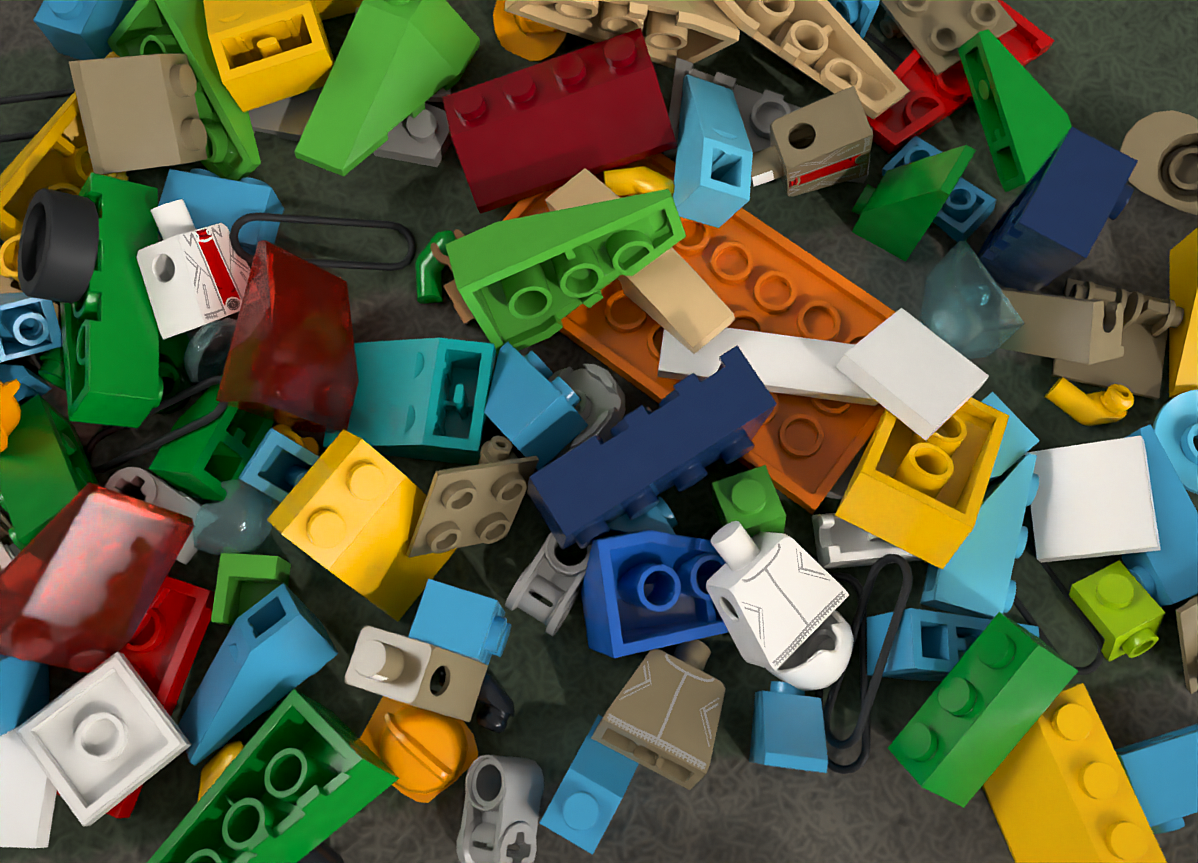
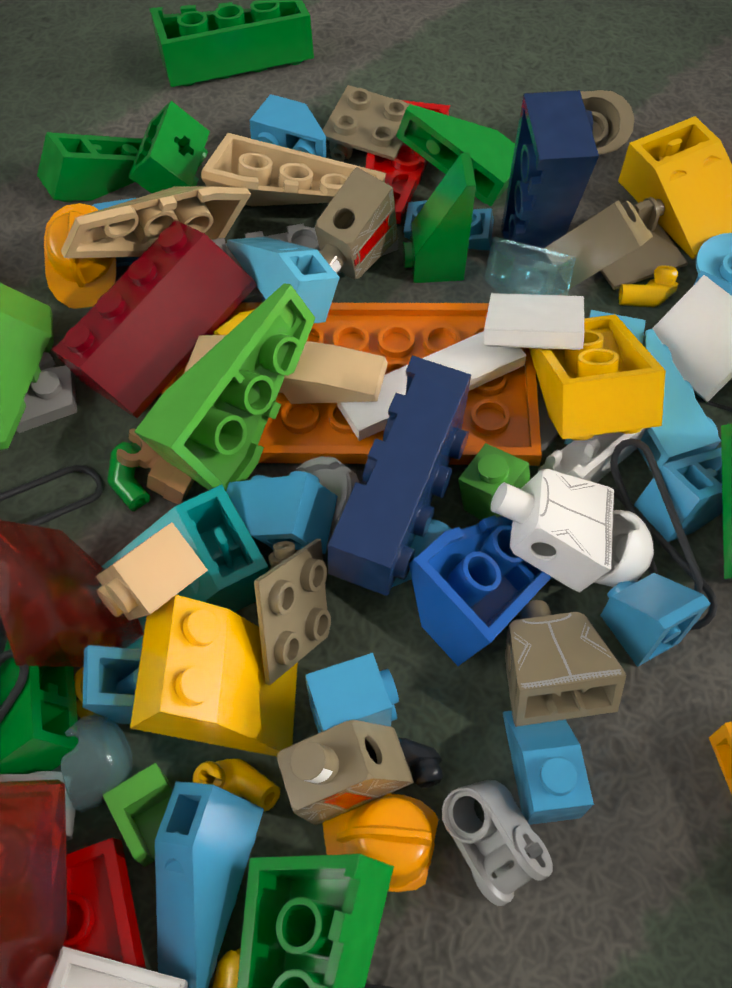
camera: 35 degrees left, 15 degrees down
(336, 608) = (239, 779): none -> yellow arm
(356, 401) = (149, 574): none -> tan brick
(553, 582) = (395, 635): light grey piece -> none

